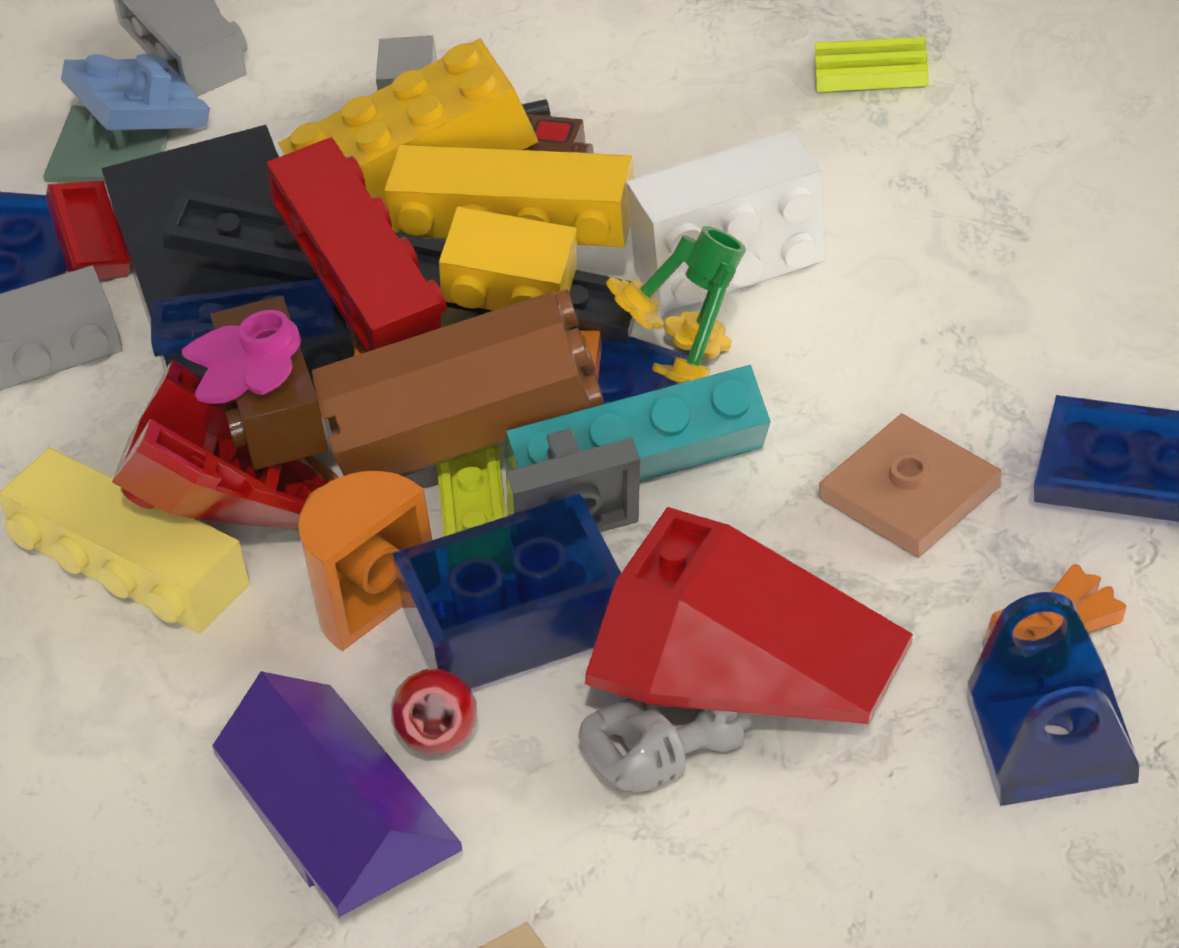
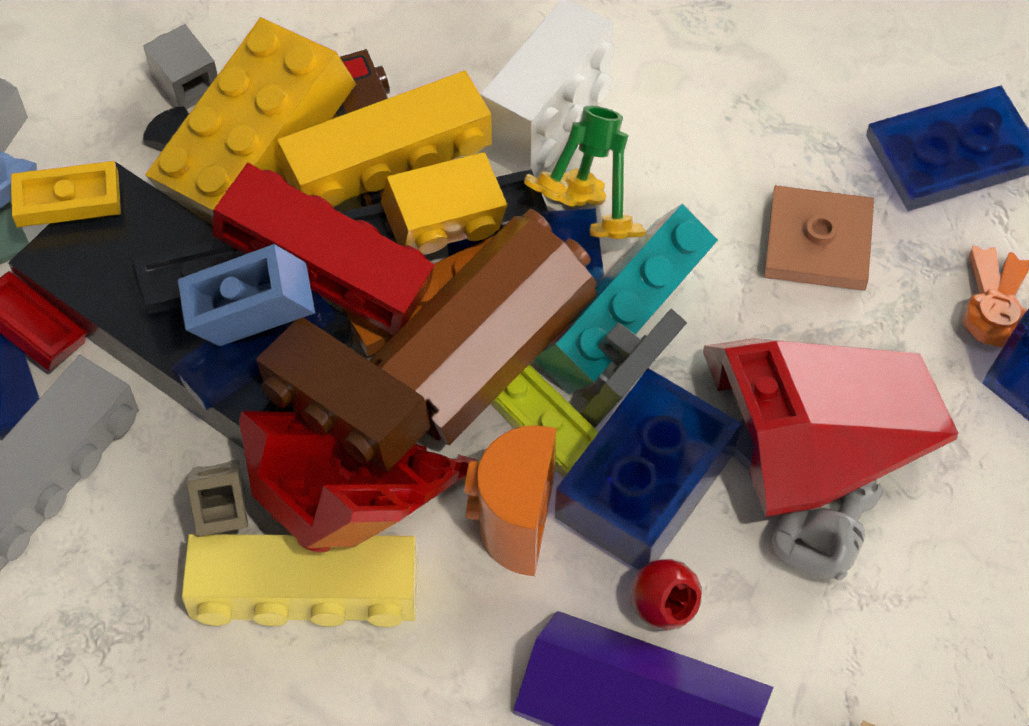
camera: 40 degrees left, 15 degrees up
(93, 426) = (217, 498): none -> dark tan leg
(190, 126) = (65, 194): none -> yellow plate
(239, 250) = (246, 295): none -> medium blue brick
(245, 356) = (334, 396): dark pink plate -> none

